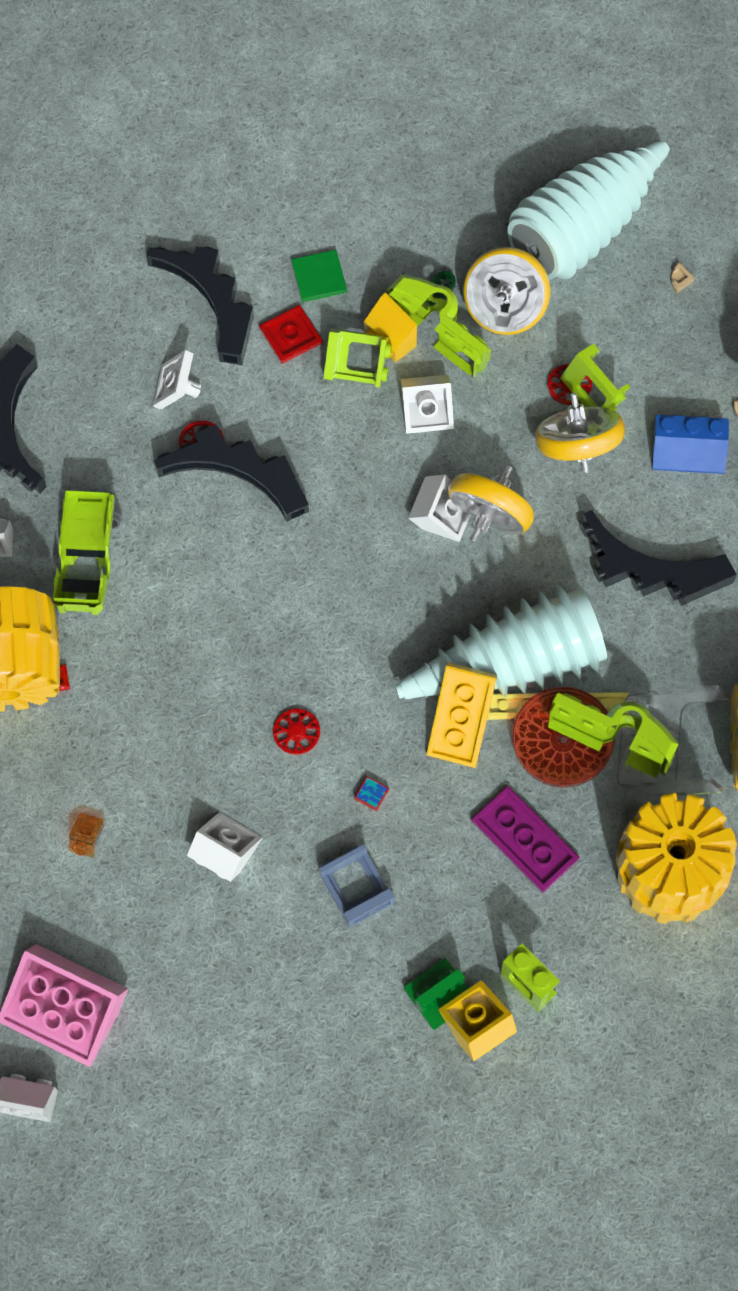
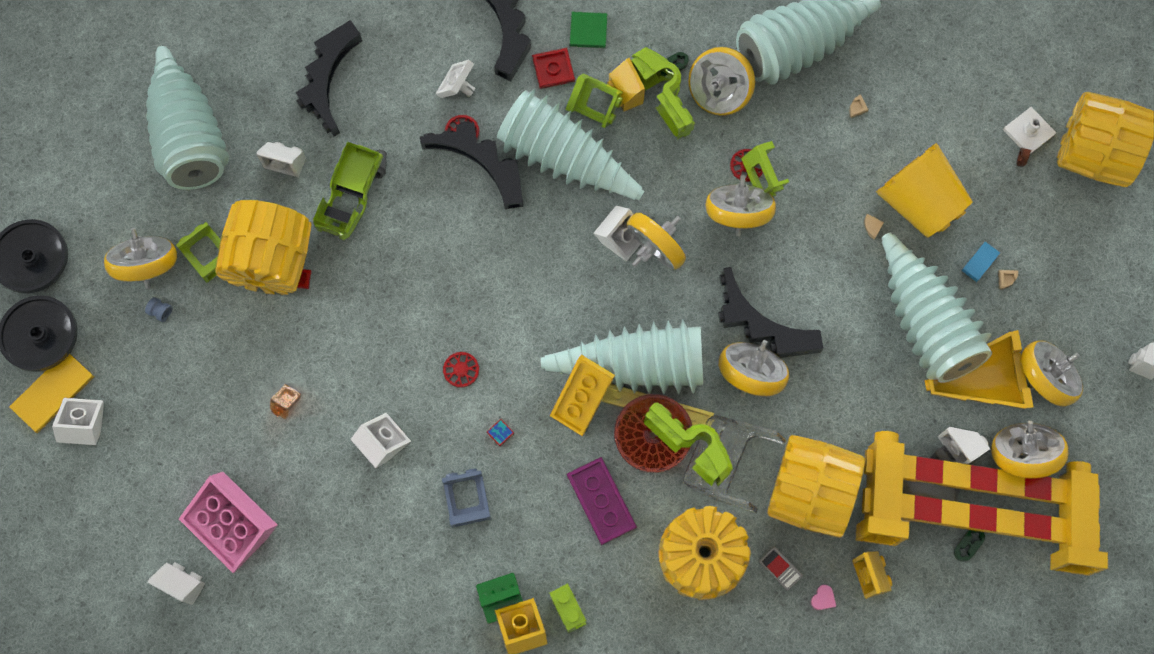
camera: 15 degrees right, 5 degrees up
(338, 422) = (563, 146): none -> light aqua cone
(427, 403) = (636, 149): white slope -> none
(661, 622) = (753, 369): none -> flat silver wheel
(690, 444) = (822, 237): slope -> none

